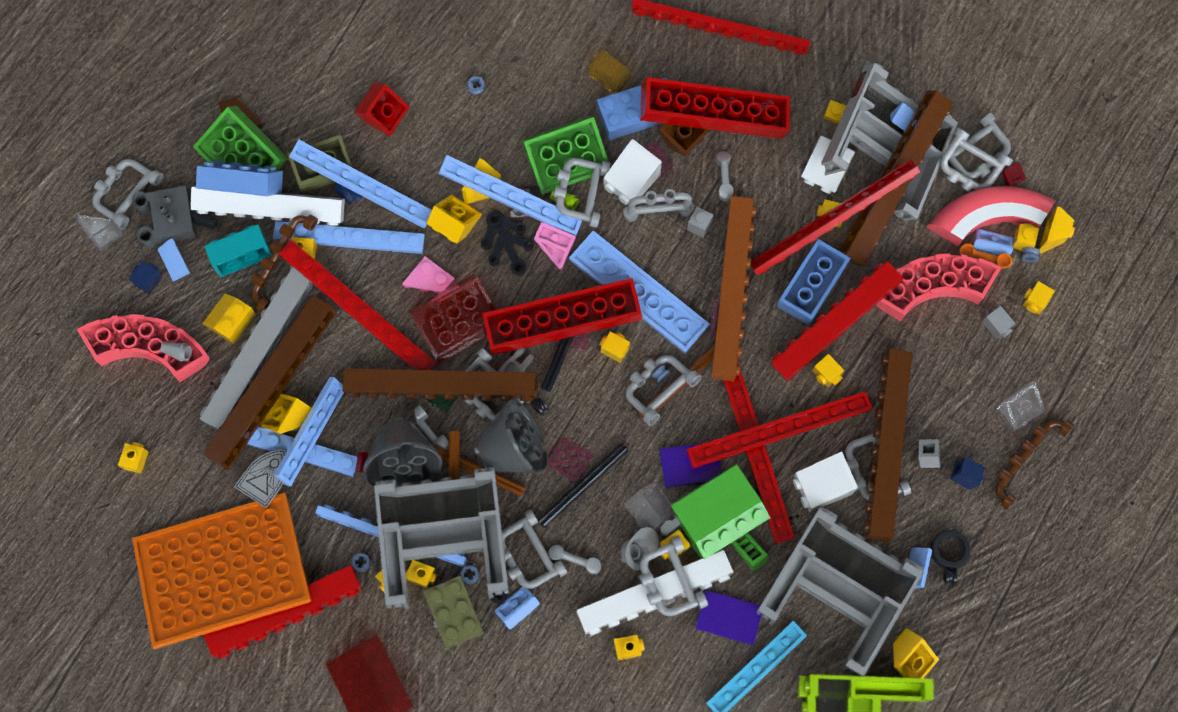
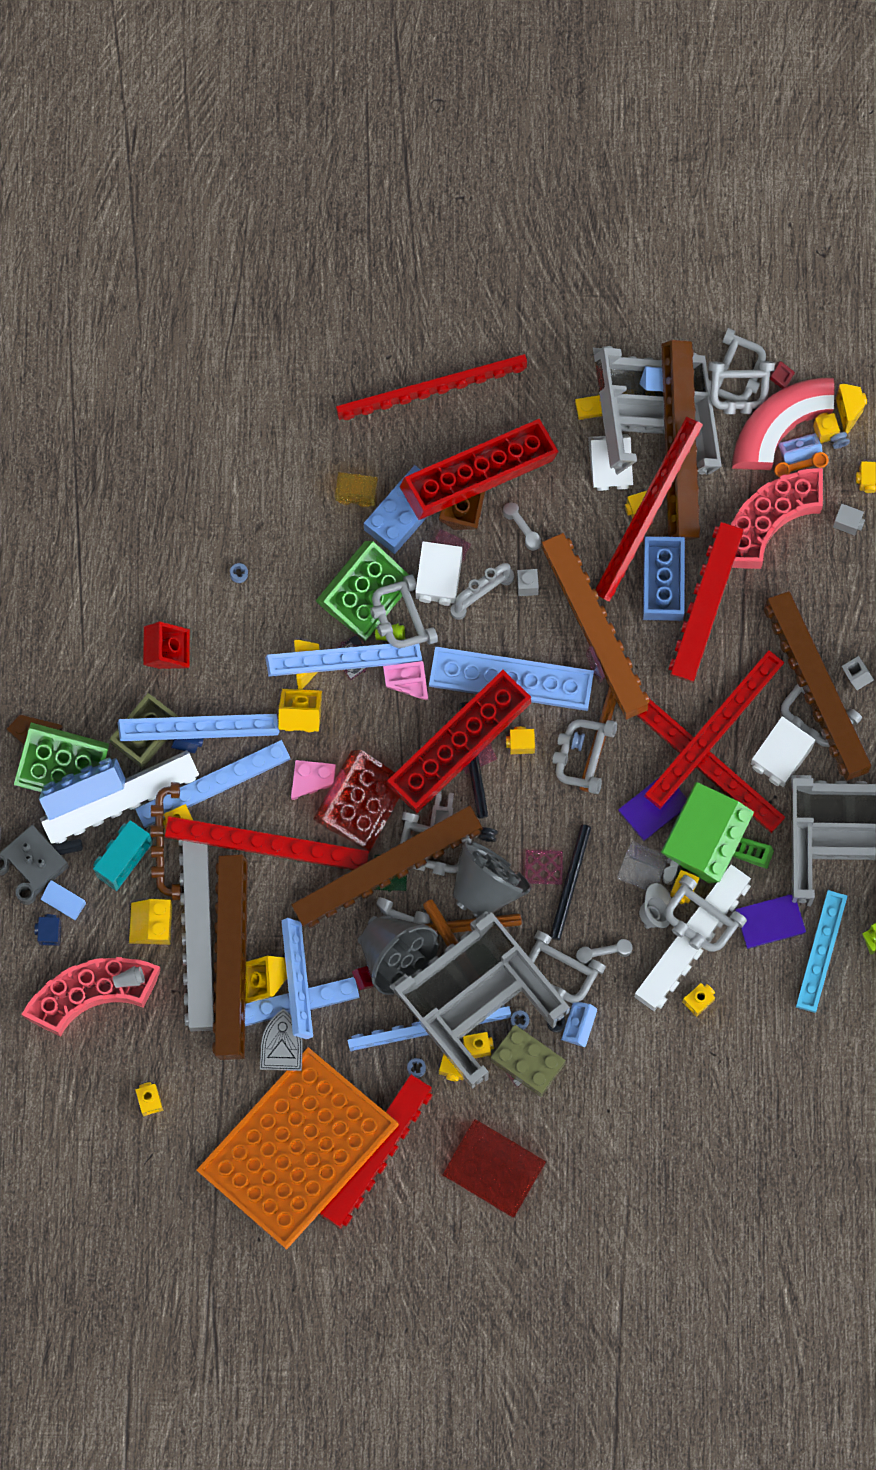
camera: 30 degrees left, 0 degrees up
(505, 239) = (360, 702): black plant -> none
(828, 371) = (725, 652): yellow brick -> none

